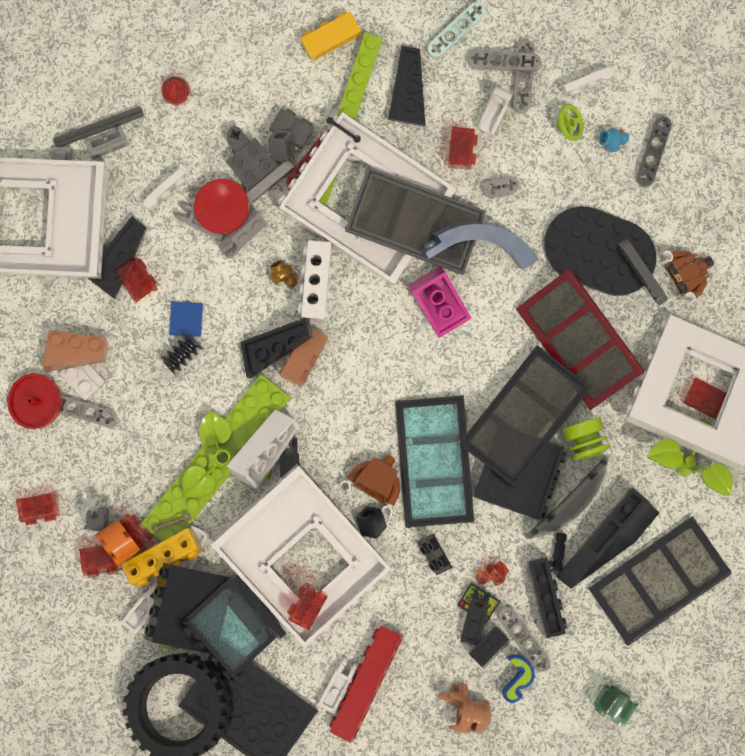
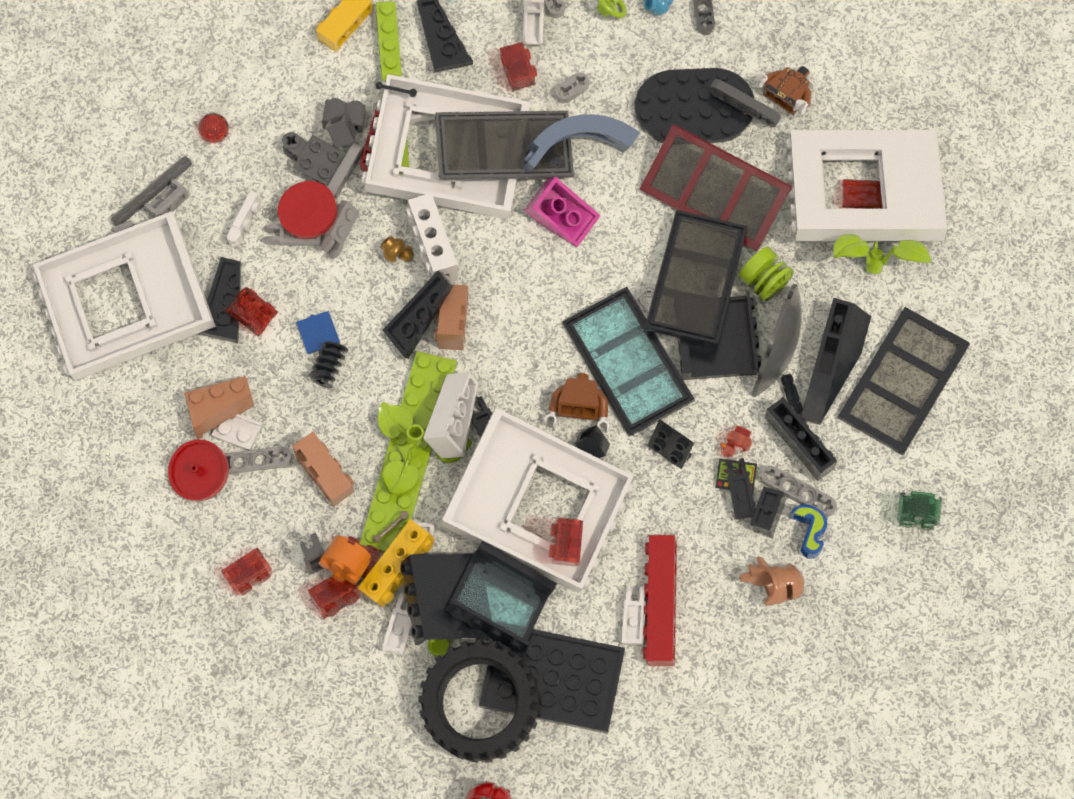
camera: 20 degrees left, 15 degrees down
(138, 448) = (323, 469): none -> nougat wedge

